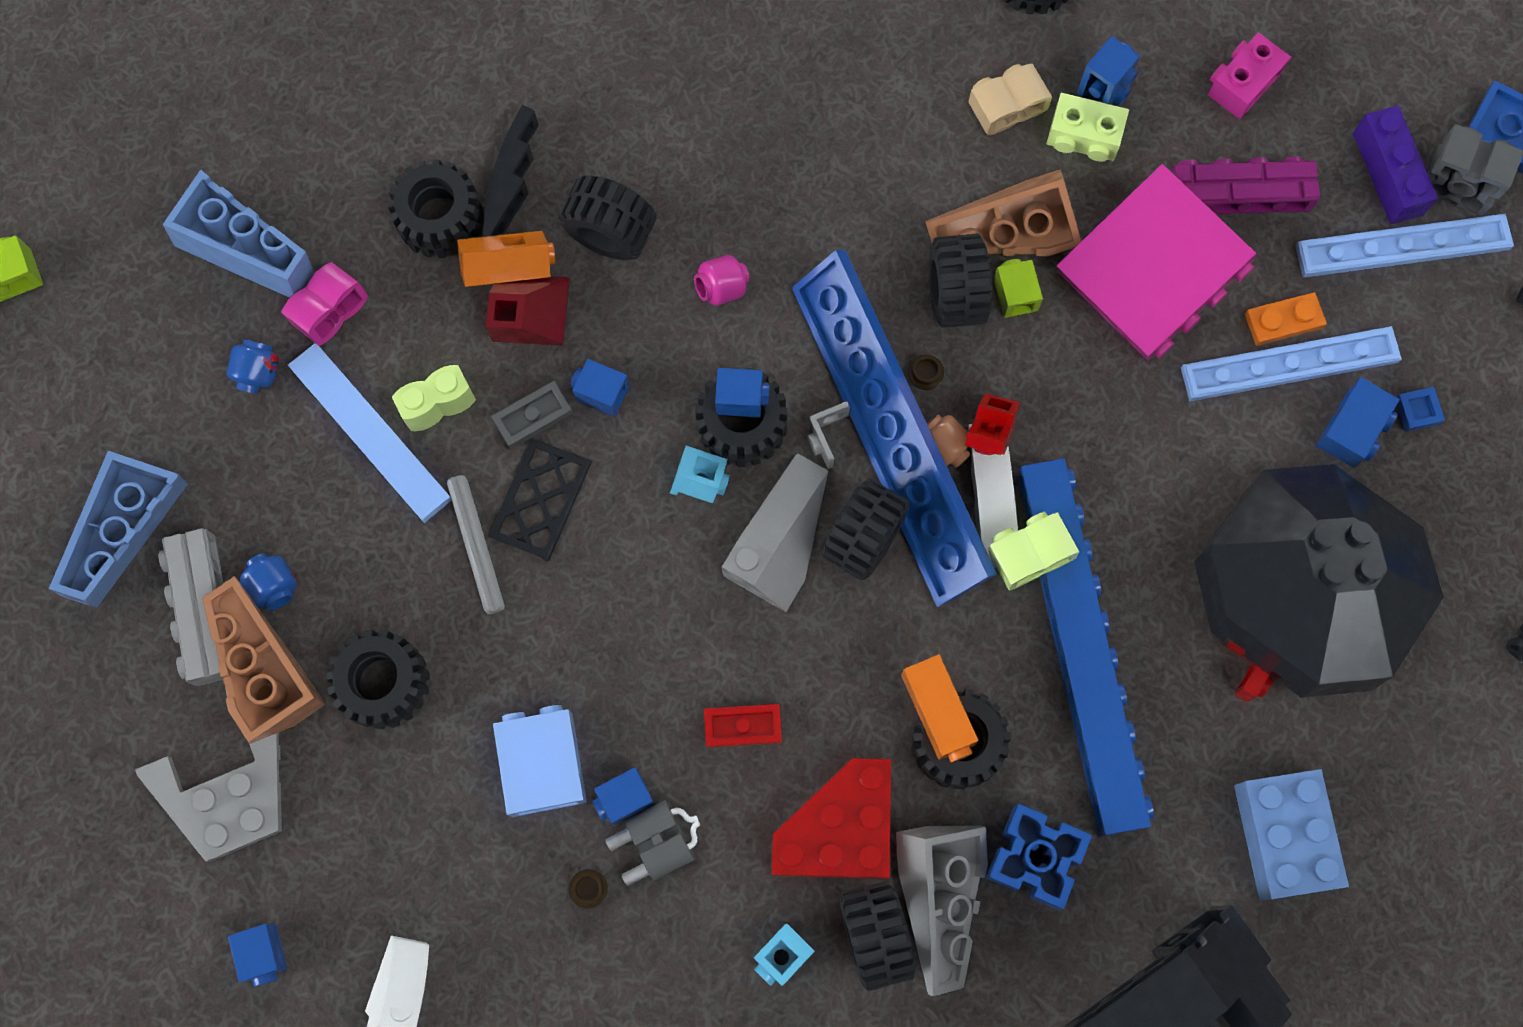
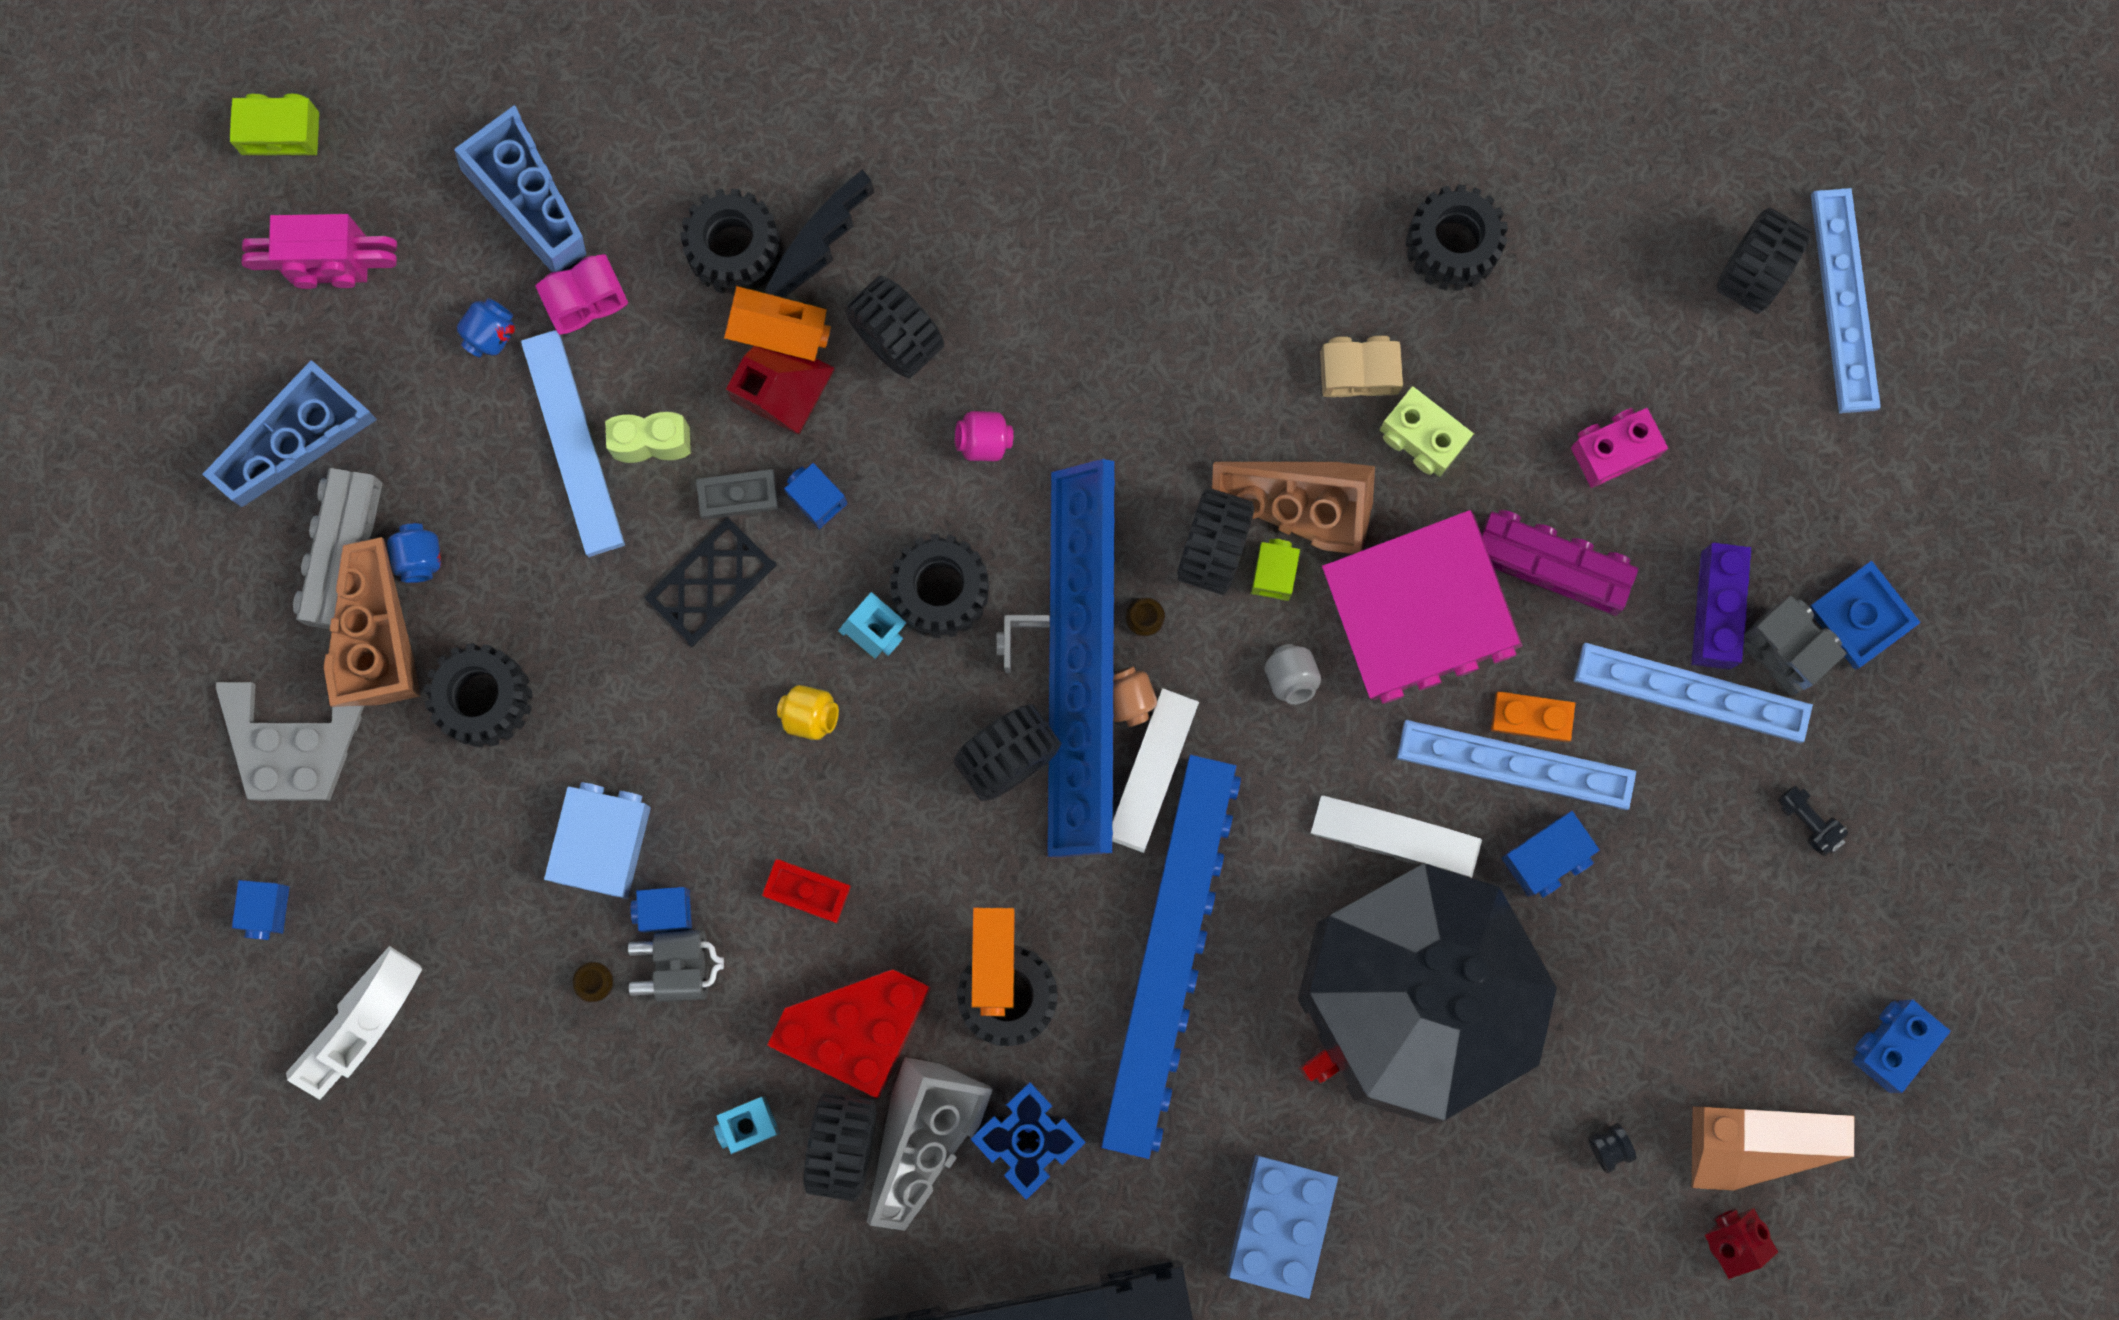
camera: 20 degrees right, 5 degrees up
(76, 358) = (319, 250): none -> dark pink brick
(475, 544) = (628, 601): light grey axle -> none
(675, 571) = (808, 712): none -> yellow head
(740, 392) = (942, 565): blue brick -> none
(779, 539) = (923, 723): light grey wedge -> none
(993, 425) = (1180, 702): red brick -> none
(1032, 550) = (1158, 844): yellowish green brick -> none
(1073, 365) = (1293, 674): none -> light grey head
(1110, 73) = (1469, 389): blue brick -> none
(1222, 462) = (1396, 836): none -> white slope
(1420, 409) = (1620, 867): blue plate -> none

